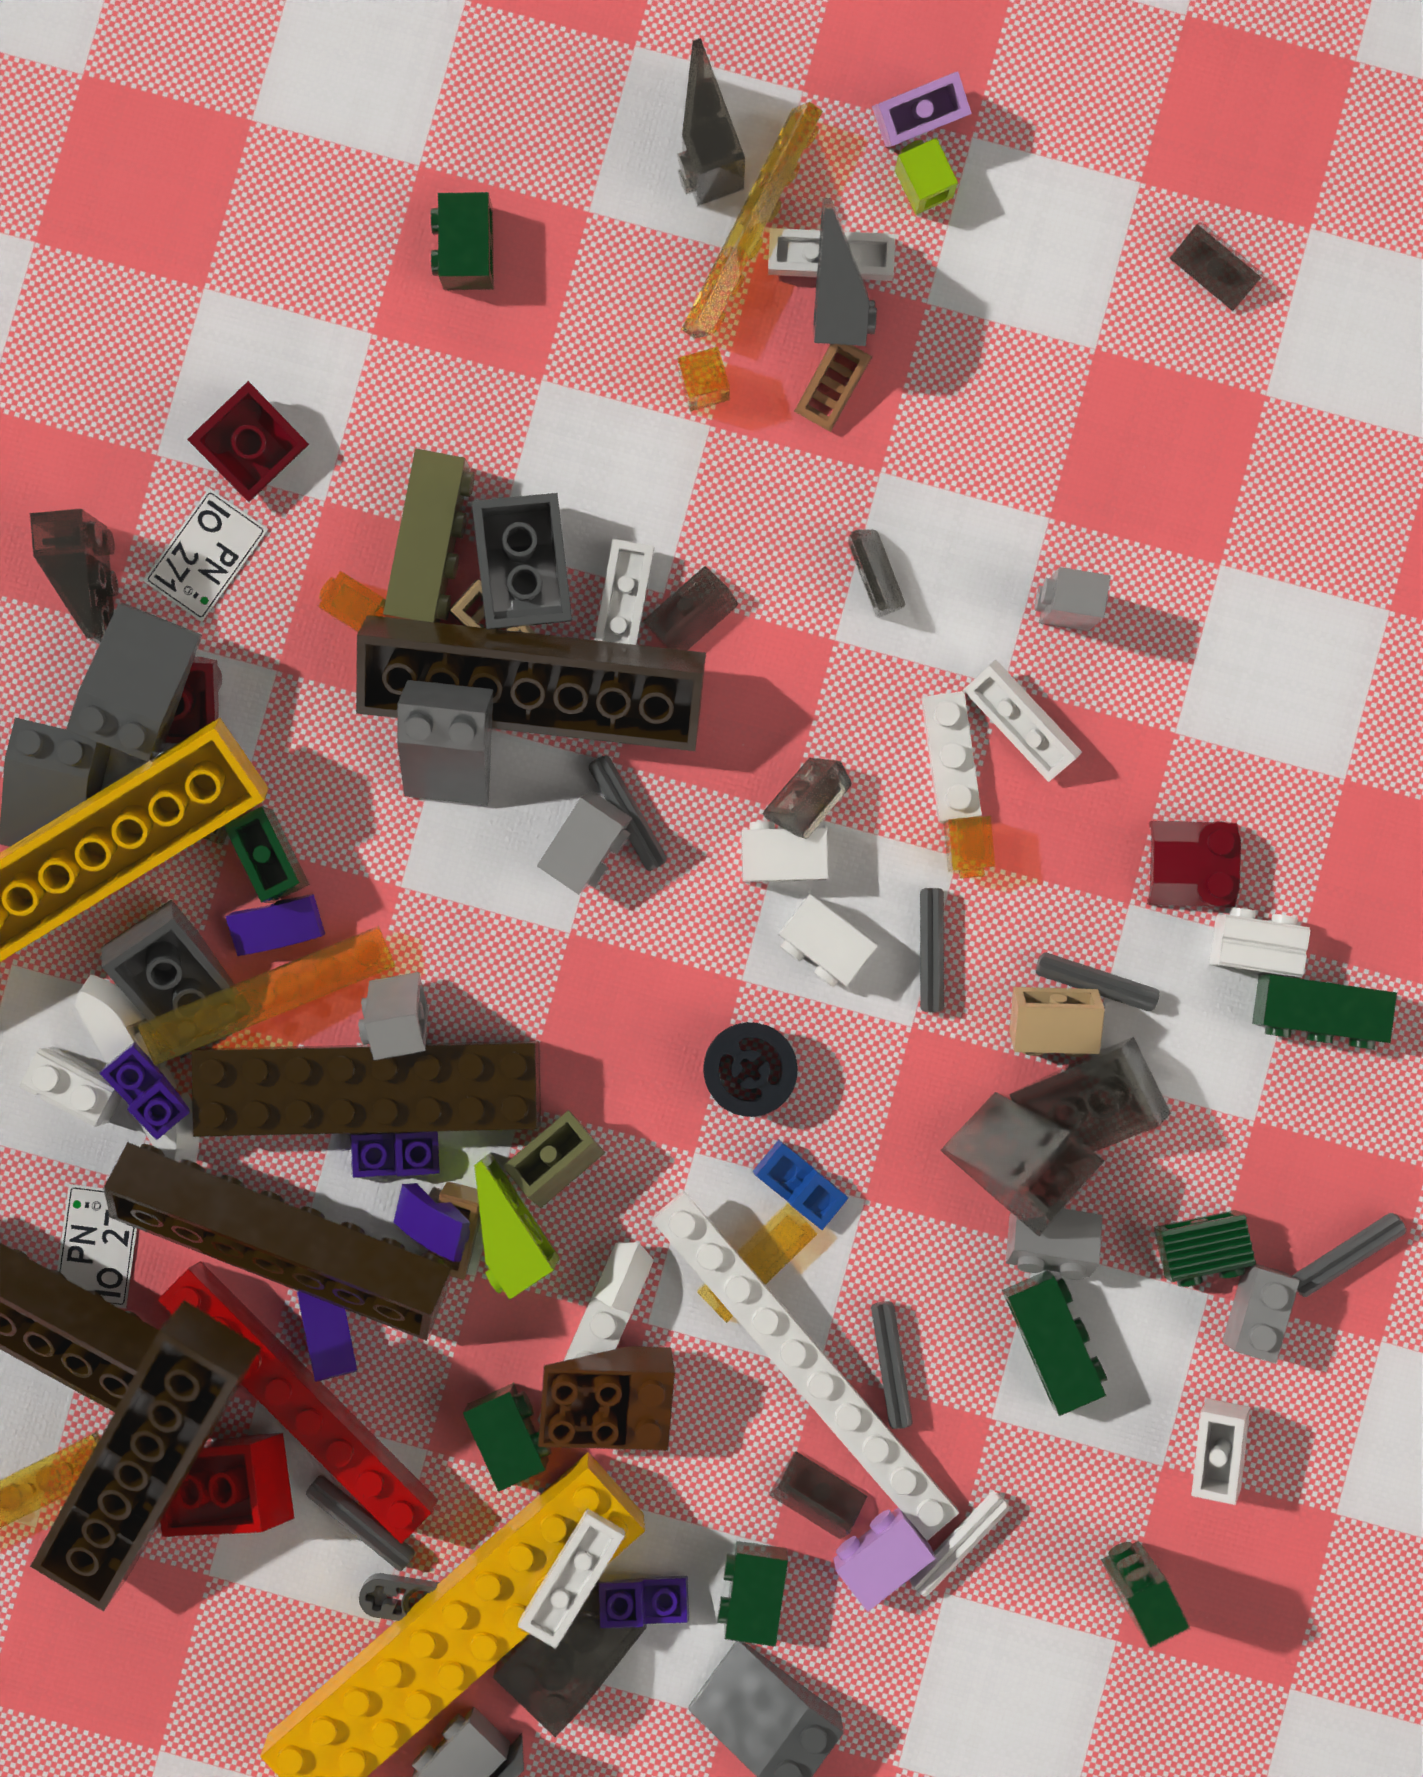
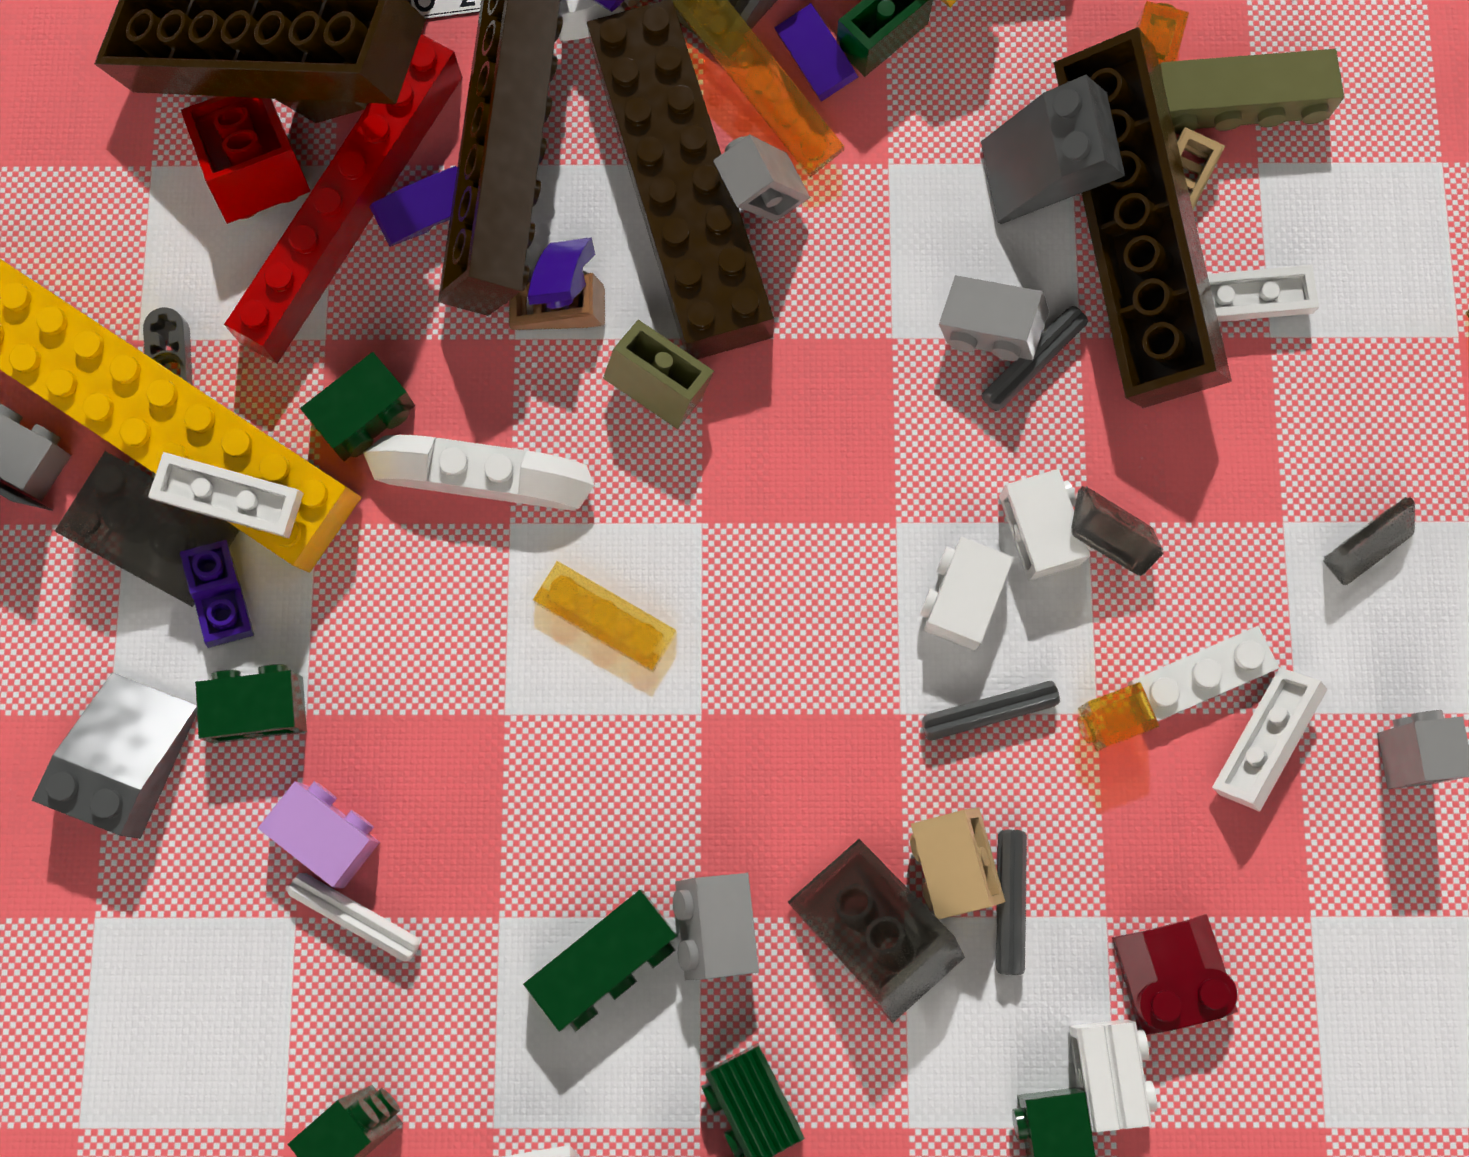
camera: 75 degrees right, 10 degrees down
(359, 1522) = (253, 256): dark grey axle -> none
(394, 1154) = (619, 225): dark purple slope -> none
(512, 1239) = (572, 345): lime slope -> none
(521, 561) = (1264, 175): dark grey slope -> none
(609, 1400) = (422, 491): reddish brown slope -> none
(691, 611) = (1265, 368): clear smoke slope -> none
(771, 1095) = (828, 521): black wheel -> none
(800, 1184) = (698, 639): blue slope -> none
(804, 1365) = (505, 696): white plate -> none
(818, 1495) = (371, 749): clear smoke slope -> none
(891, 1365) = (531, 789): dark grey axle -> none
(1023, 1160) = (793, 868): clear smoke slope -> none

